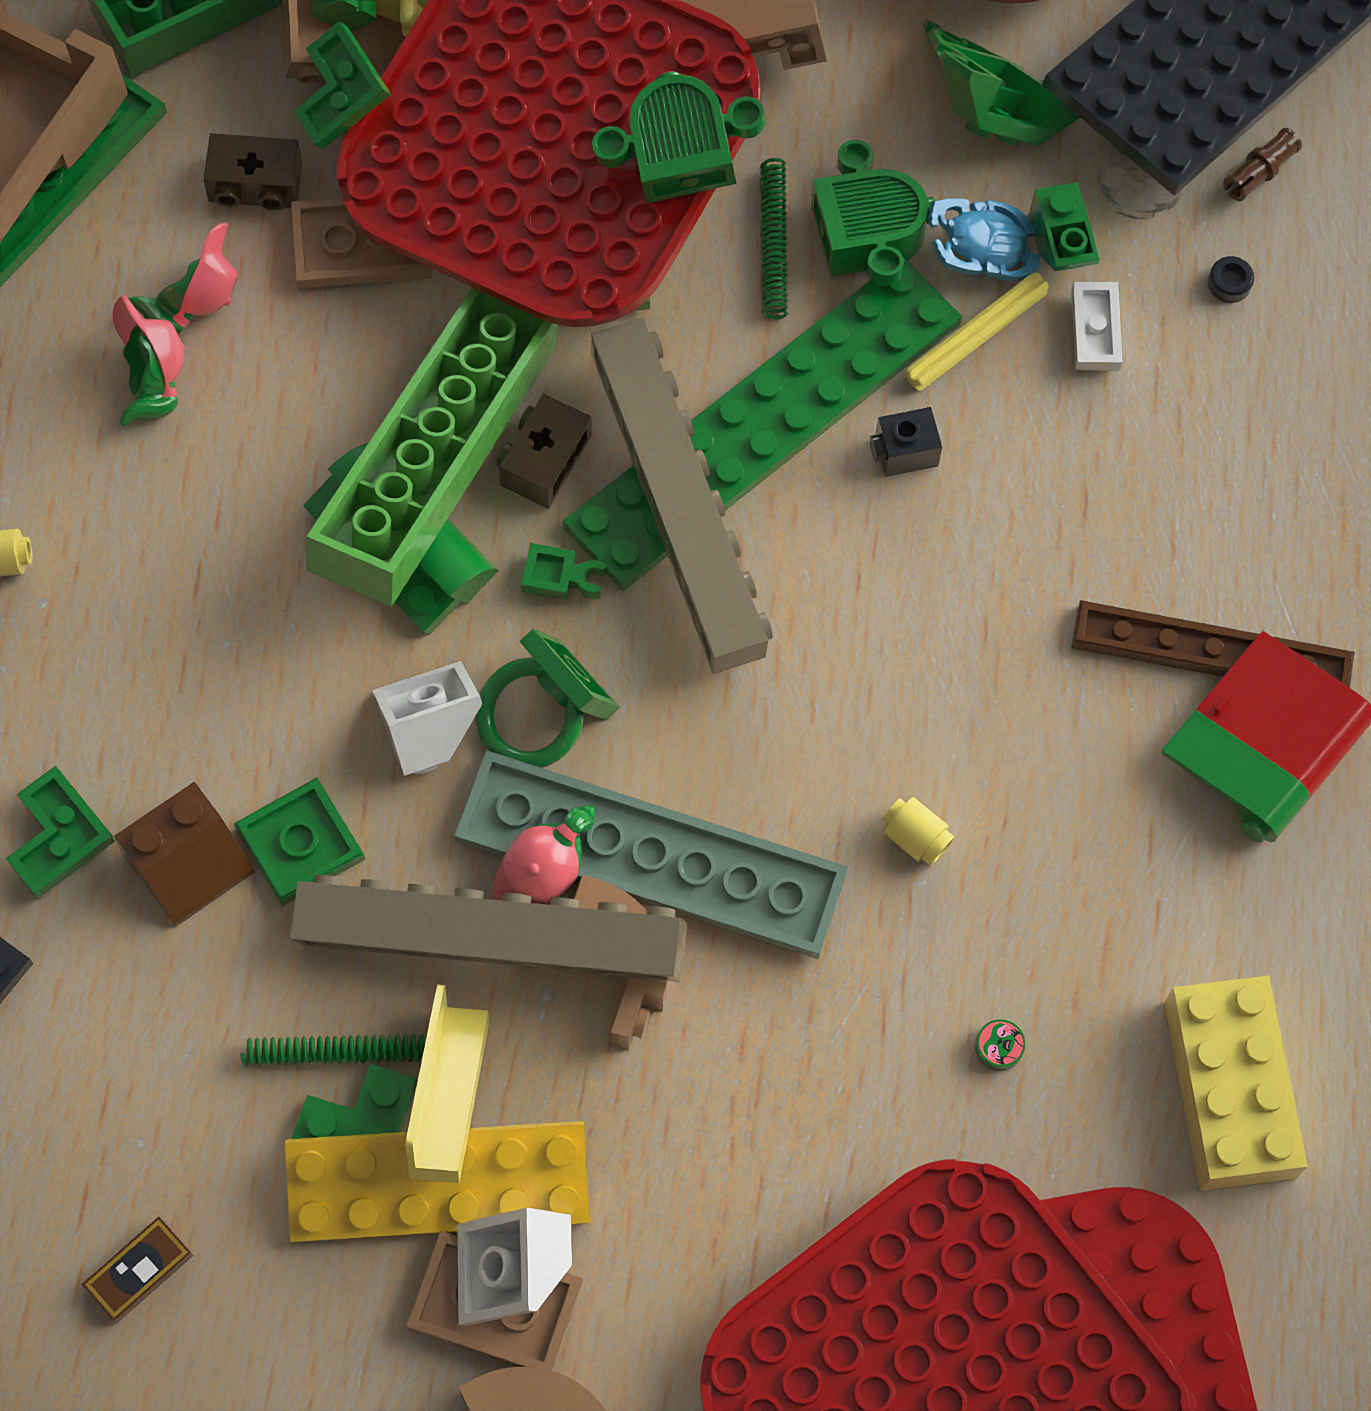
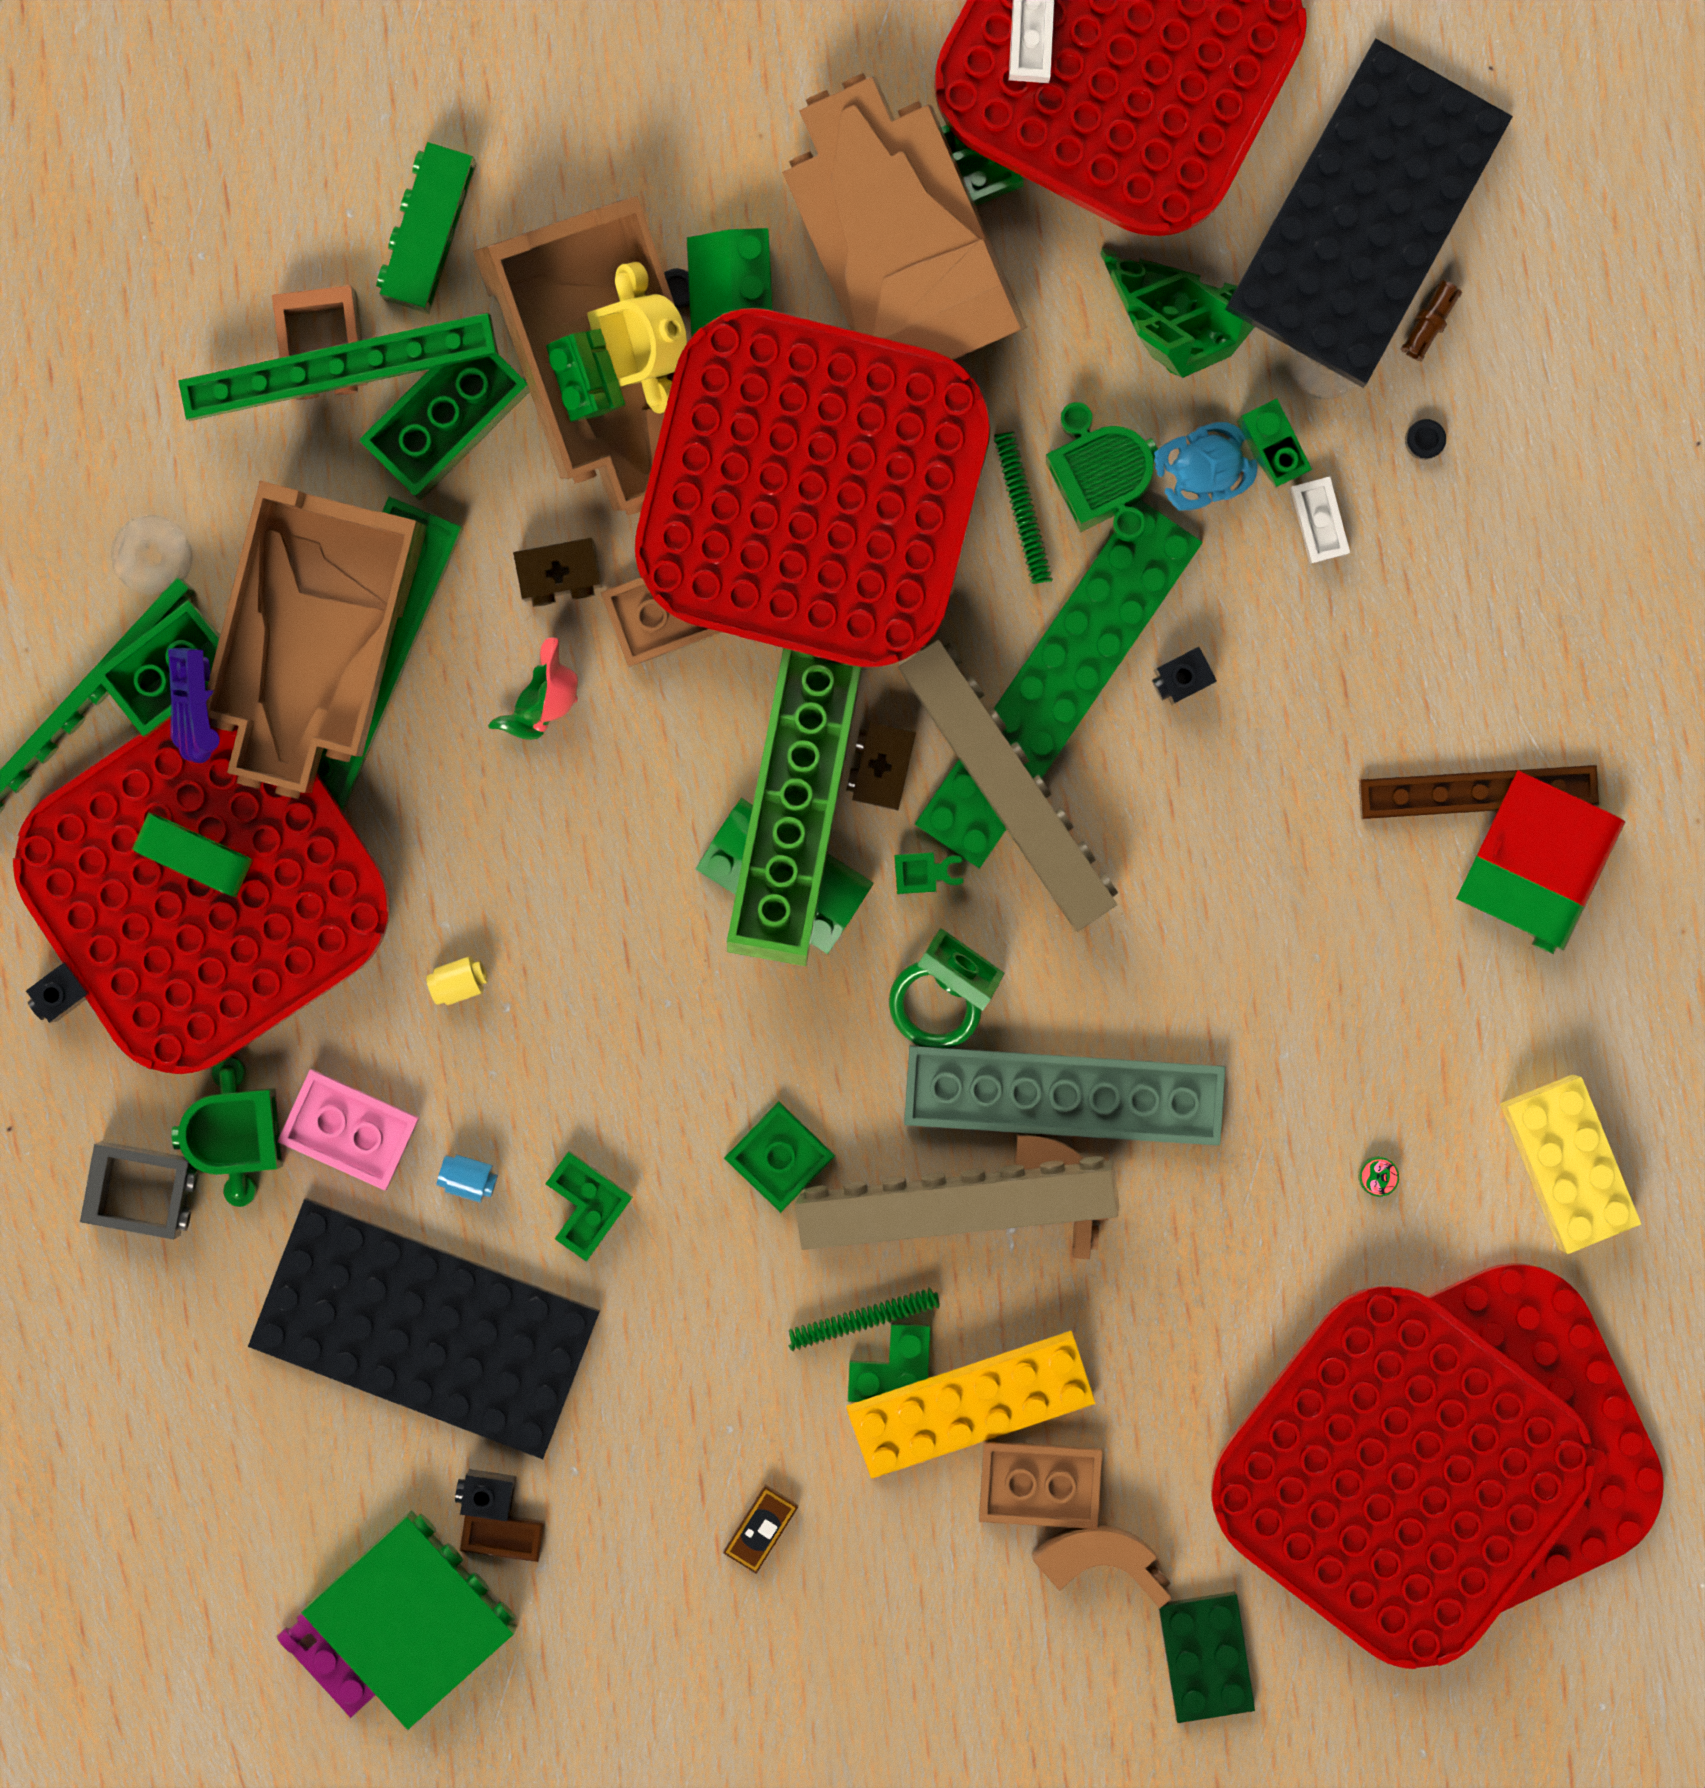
camera: 10 degrees left, 20 degrees up
(154, 362) = (532, 778): hair -> none
(184, 854) = (694, 1197): reddish brown slope -> none
(350, 89) = (628, 489): green plate -> none
(428, 716) = (853, 1026): white slope -> none
(445, 1091) = (961, 1339): light yellow panel -> none
(510, 1263) = (1048, 1462): white slope -> none
(544, 858) = (982, 1129): coral hair -> none
(679, 137) = (933, 485): green piece -> none
(917, 830) = (1273, 1019): light yellow brick -> none
(976, 331) = (1218, 550): light yellow axle -> none

